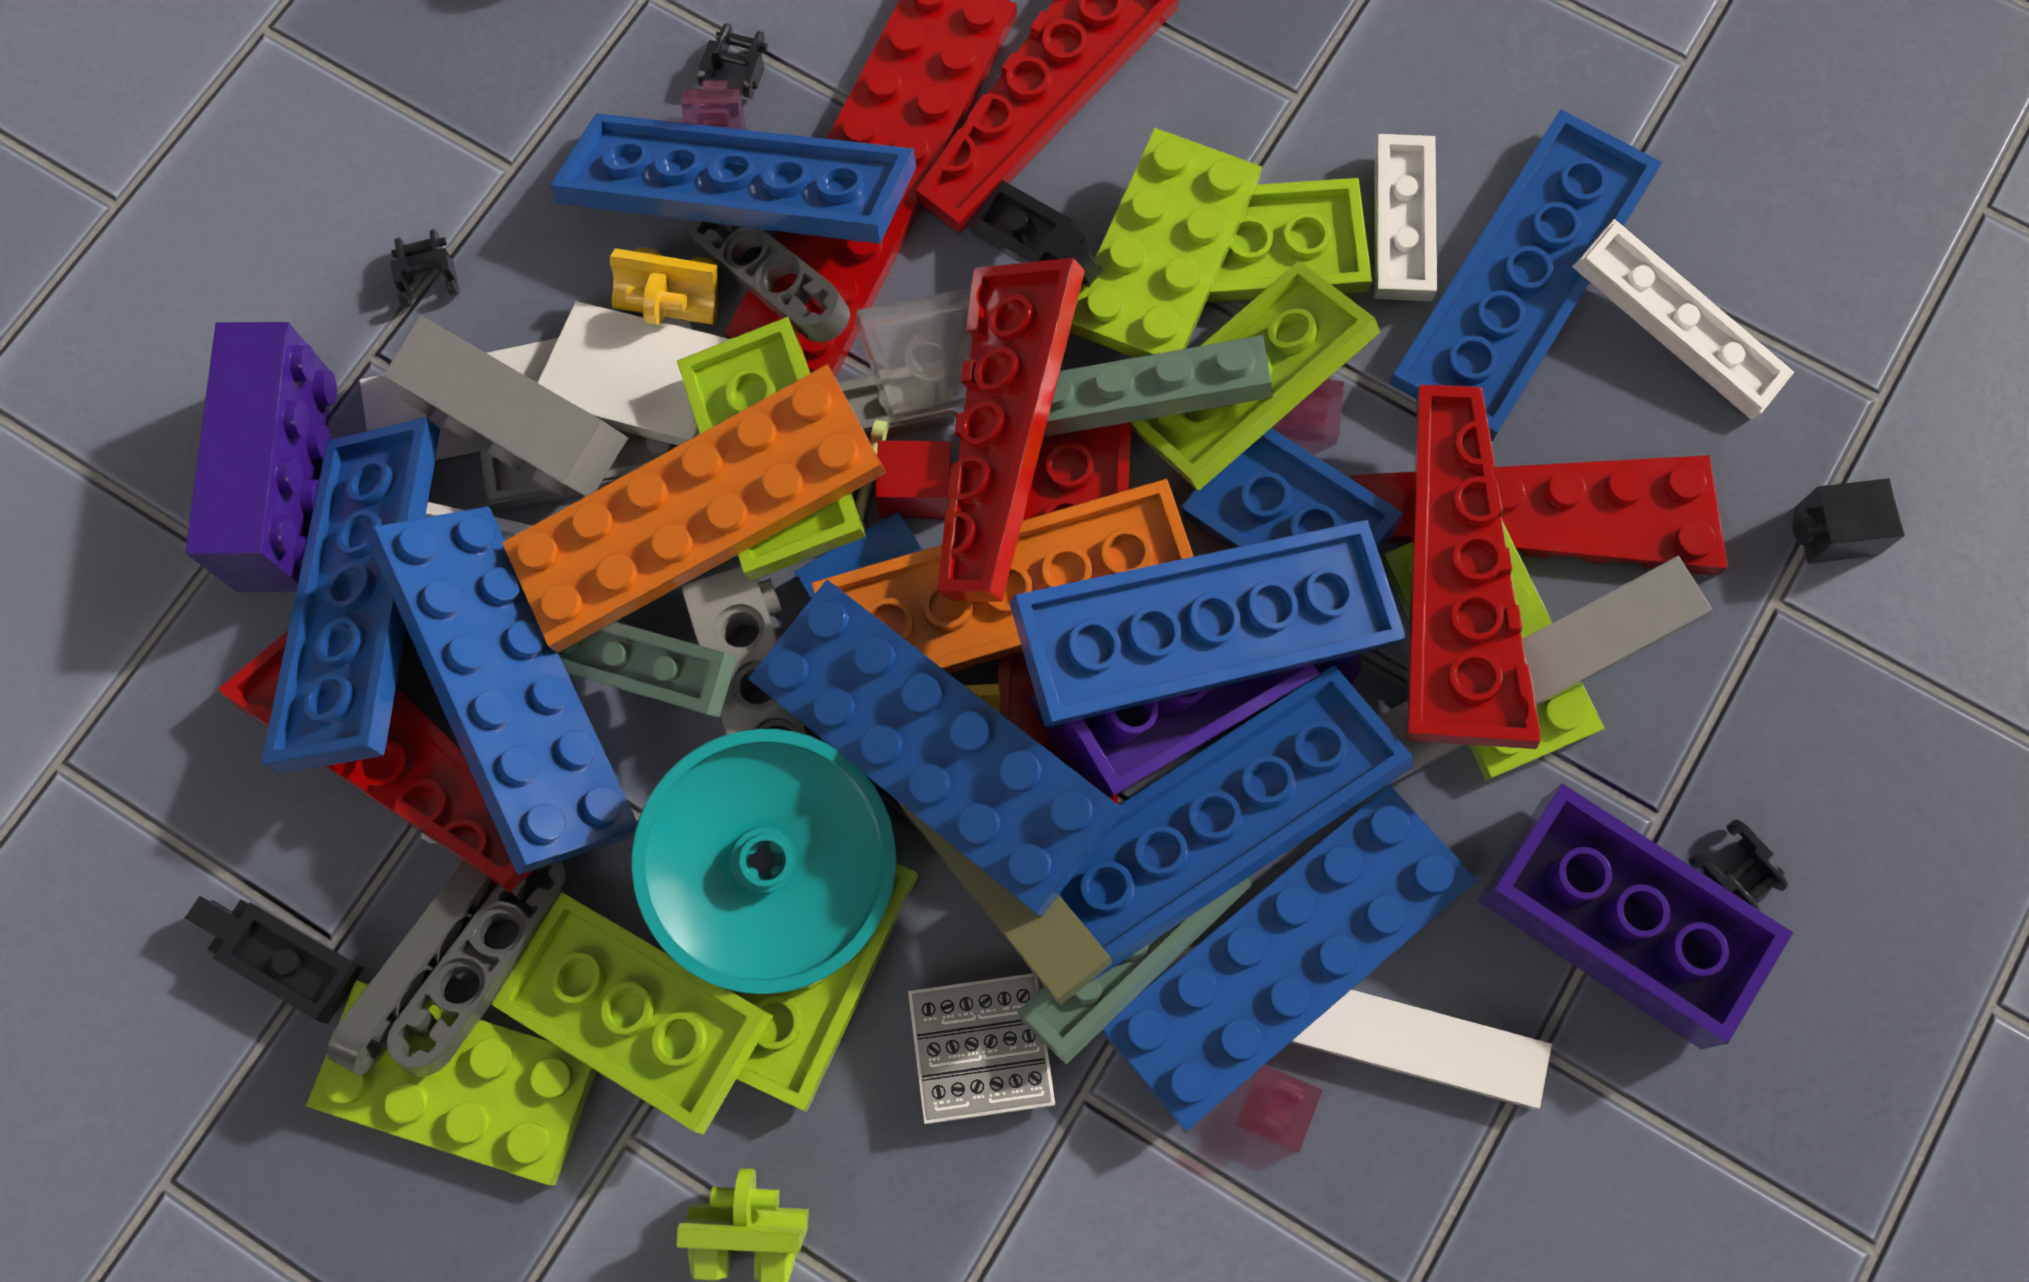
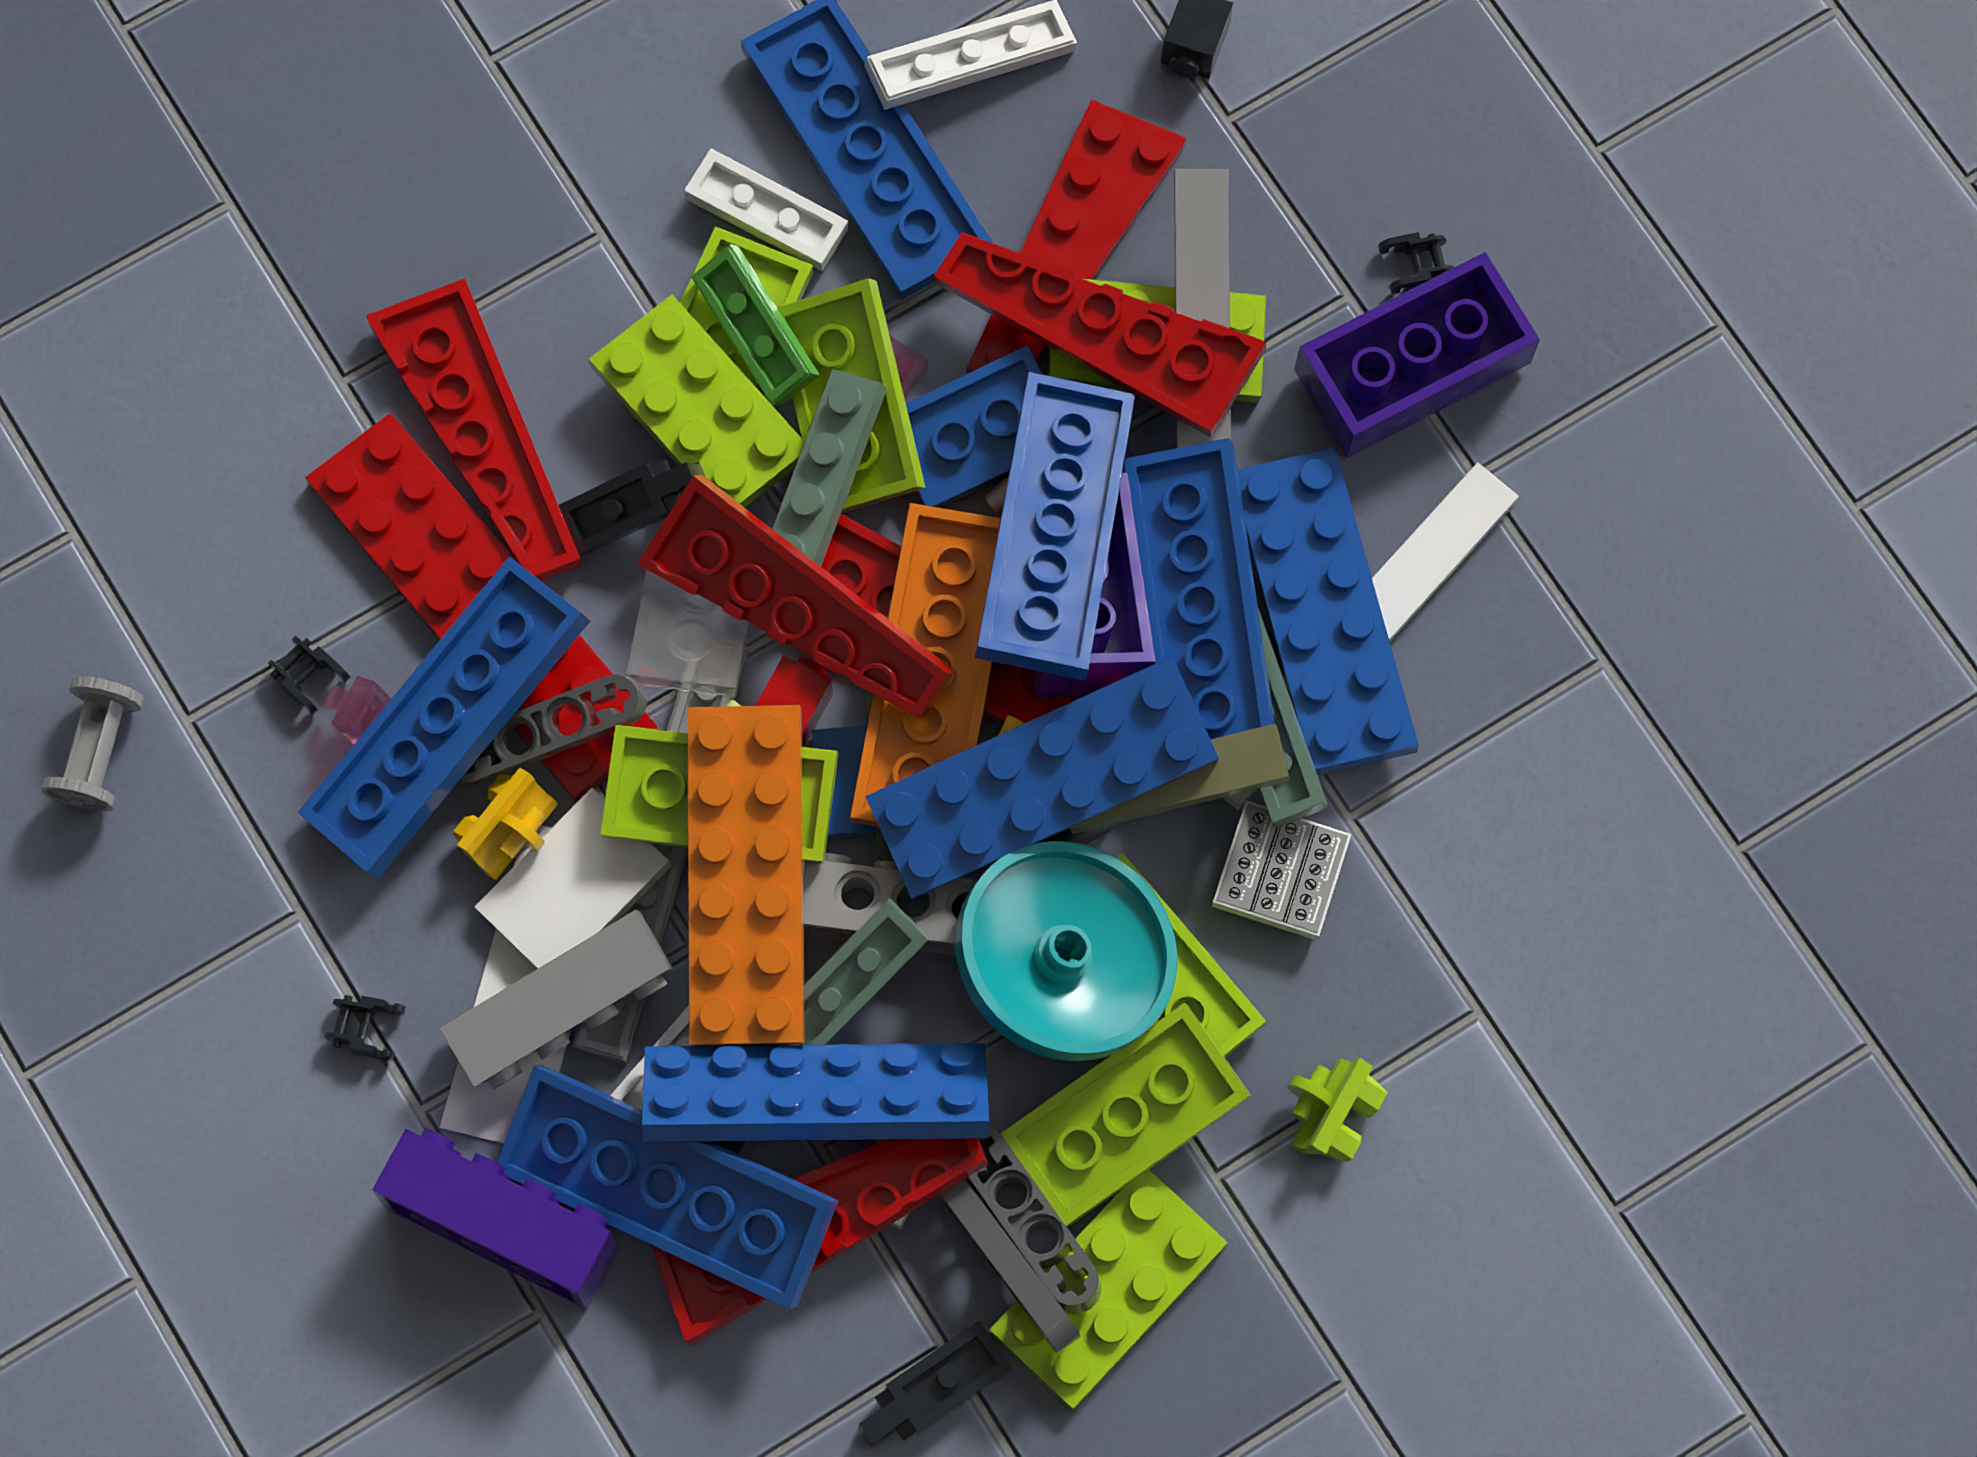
camera: 70 degrees left, 0 degrees up
(1273, 254) = (755, 325): none -> bright green tile
(1279, 1108) = (1430, 679): clear pink tile -> none

